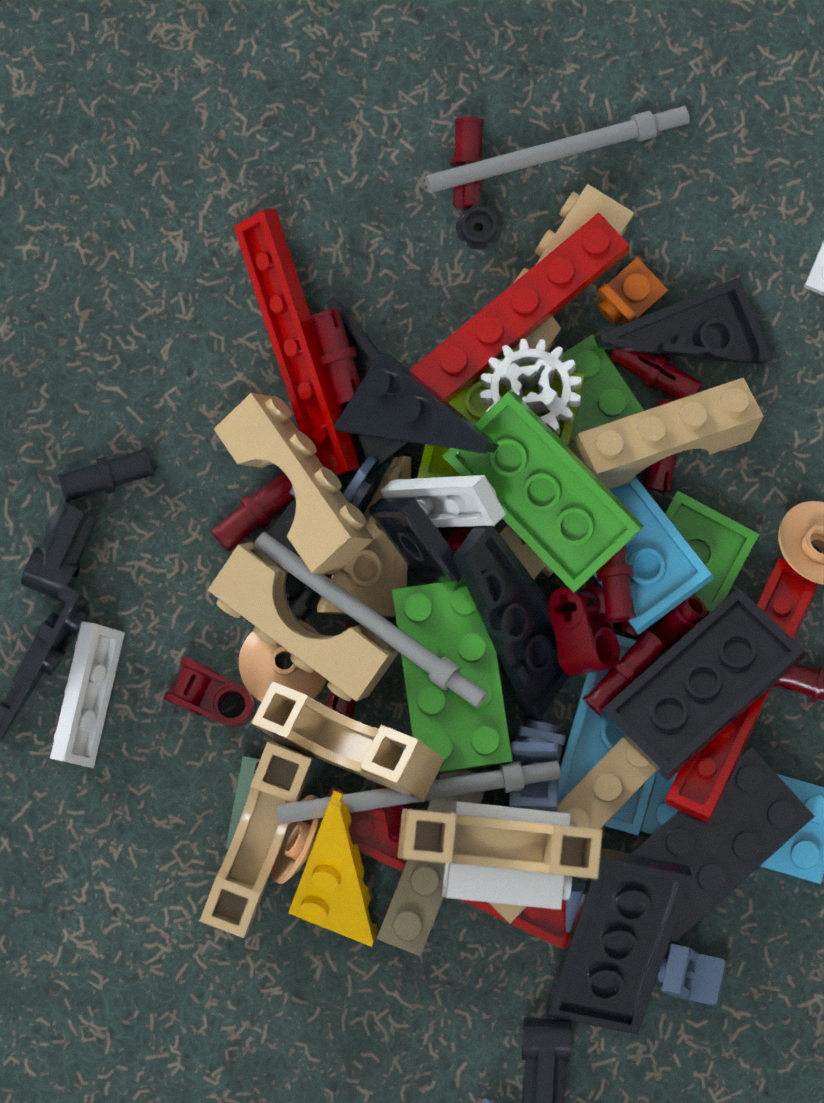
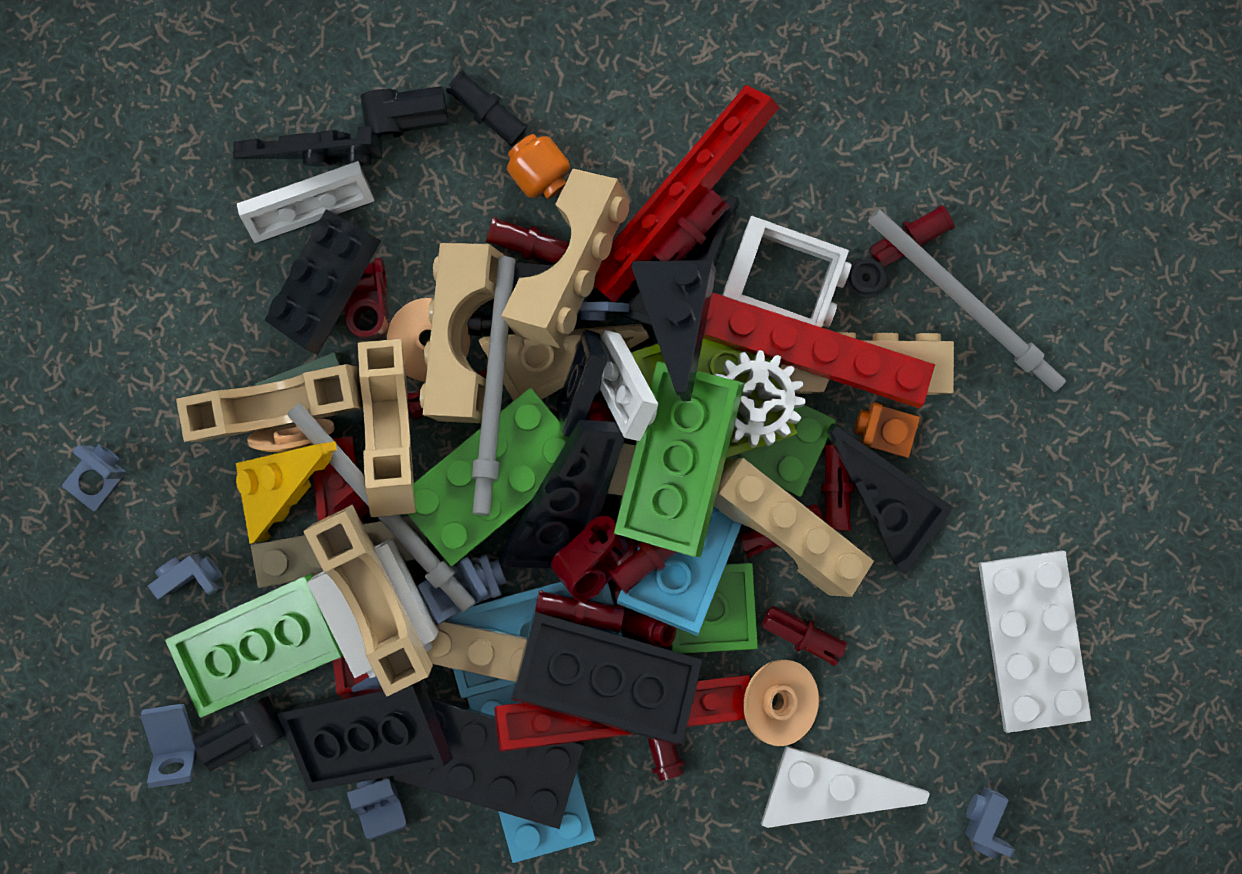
camera: 55 degrees right, 5 degrees up
(172, 722) = (321, 281): none -> black plate
(190, 460) = (538, 166): none -> orange head
(211, 1037) = (100, 460): none -> sand blue bracket
(357, 1033) = (176, 574): none -> sand blue bracket
(390, 321) = (835, 276): none -> white window
(472, 994) = (253, 647): none -> bright green plate
(772, 485) = (804, 635): none -> dark red axle

